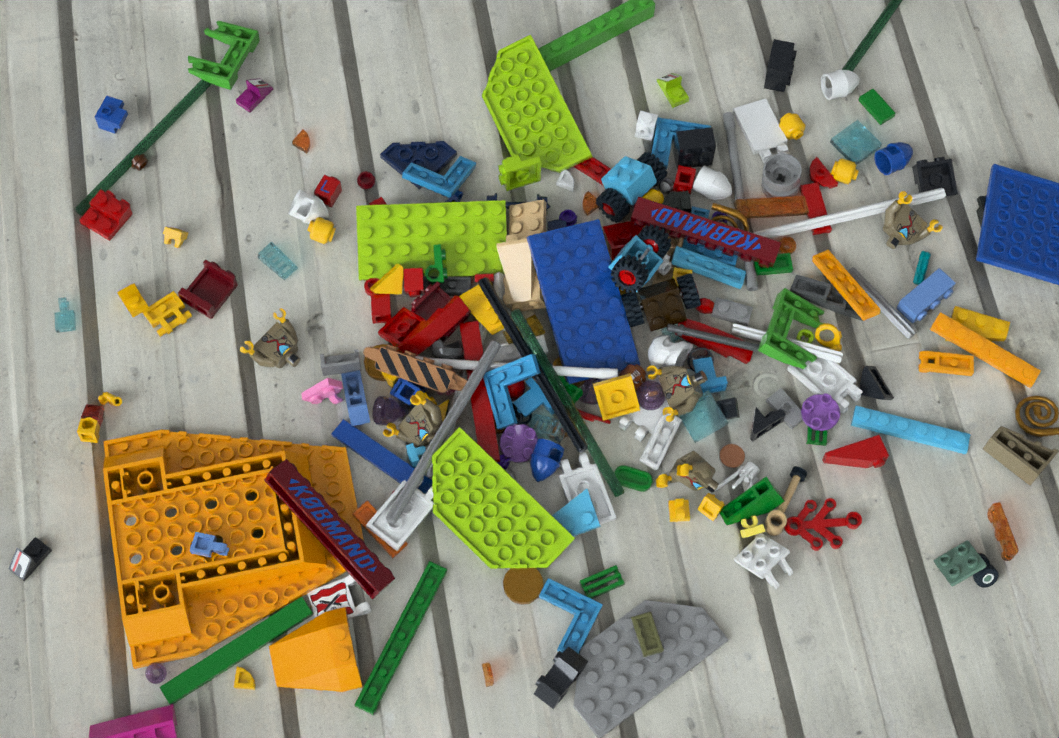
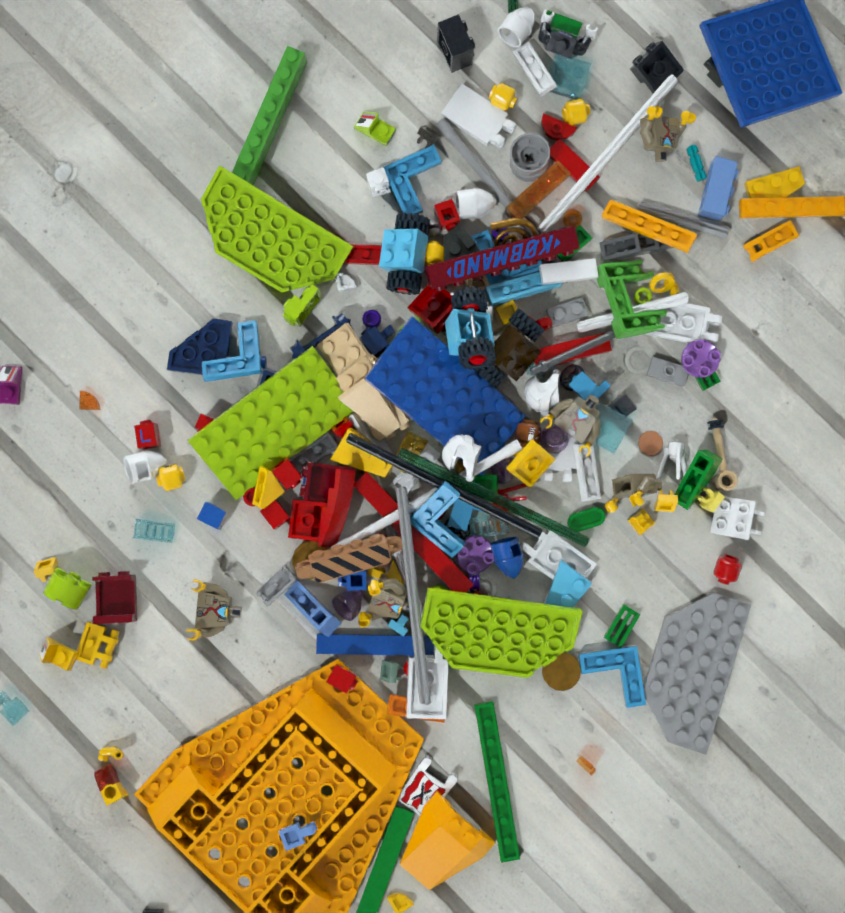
camera: 35 degrees left, 20 degrees up
(180, 255) = (67, 588): none -> lime brick
(325, 389) = (287, 623): bright pink plate -> none
(329, 528) = (381, 745): dark red brick -> none
(330, 276) = (211, 515): none -> blue panel
(337, 460) = (342, 679): none -> red brick
(366, 180) = (172, 401): dark red plate -> none
(379, 485) = (389, 671): none -> sand green tile
(439, 255) = (293, 437): green plate -> none
(449, 351) = (360, 516): dark grey hat -> none
(560, 677) = (645, 729): black brick -> none
(567, 344) = (462, 447): none -> white helmet
(589, 203) = (379, 291): clear orange tile -> none
(647, 634) = (690, 649): olive plate -> none
(694, 147) = (437, 179): black brick -> none
(711, 117) = (429, 135): none -> clear smoke tile
(727, 595) = (727, 569): none -> red head
(754, 278) = (568, 271): none -> white tile
(764, 424) = (659, 402): black slope -> none
(820, 524) = (757, 455): red plant -> none
(832, 121) = (534, 69): none -> white tile
(860, 454) = (758, 368): red slope -> none
(869, 116) = (563, 42): none -> black torso
(874, 385) = (726, 302): black slope -> none
(893, 157) = (610, 71): blue helmet -> none
(910, 429) = (778, 321): medium azure plate -> none

